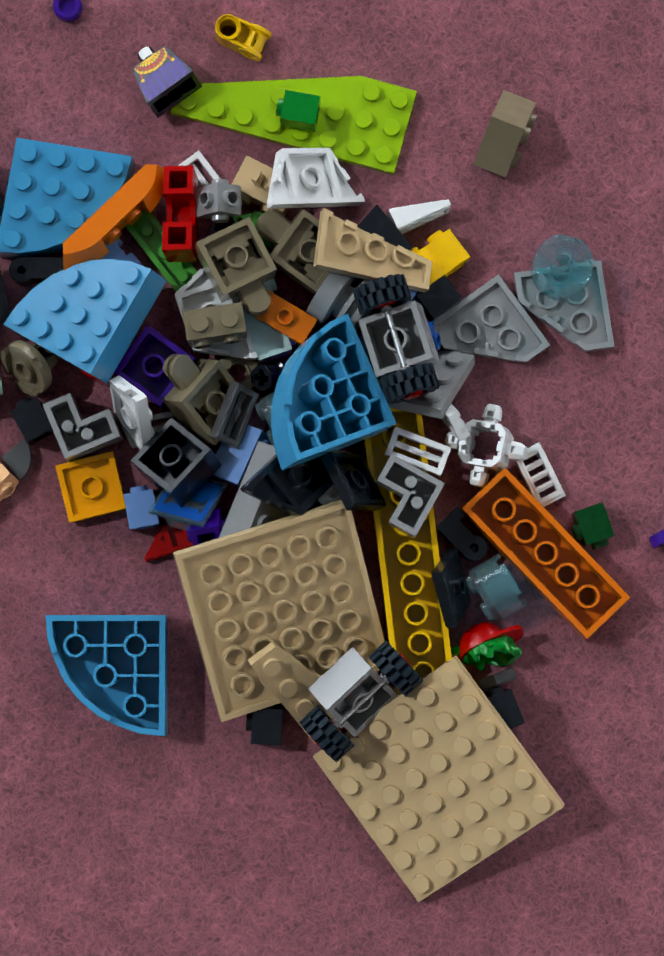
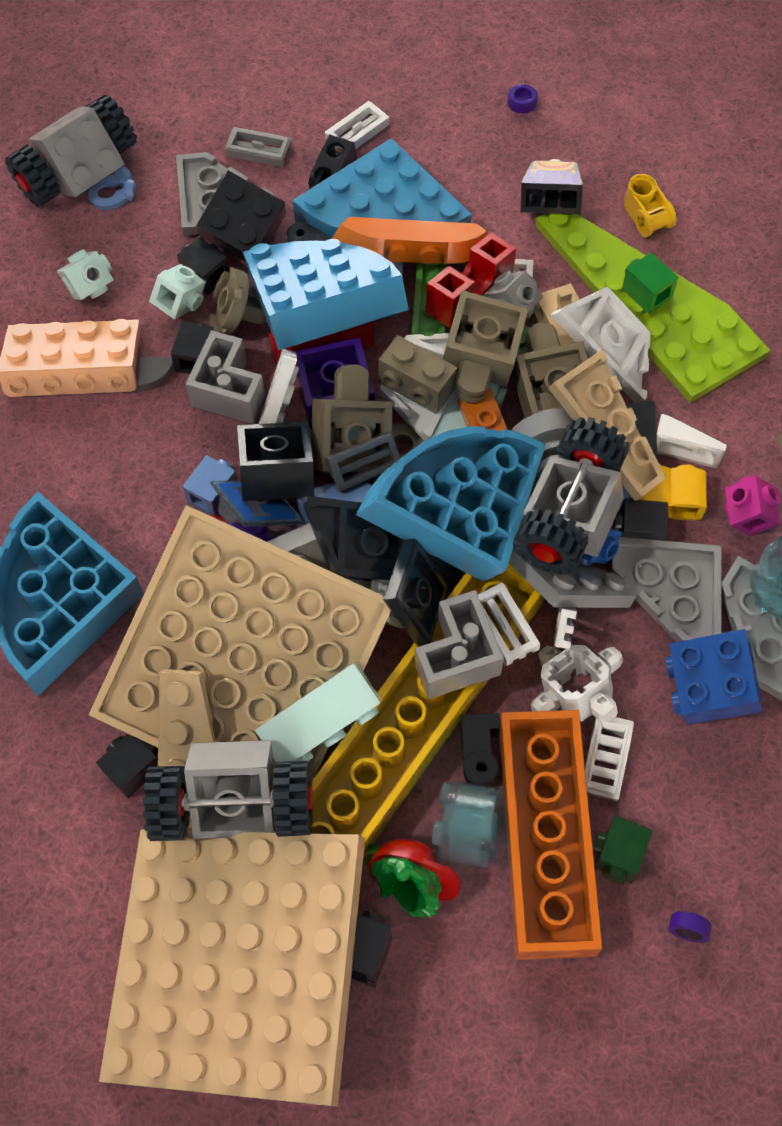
camera: 40 degrees right, 20 degrees down
(91, 487) = (187, 434): light orange plate -> none
(363, 605) = (321, 716): none -> light aqua brick
(451, 588) = (421, 778): black plate -> none
(496, 228) = (752, 505): none -> dark pink brick
(496, 679) = (396, 920): dark grey tile -> none
(564, 373) = (714, 677): none -> blue brick

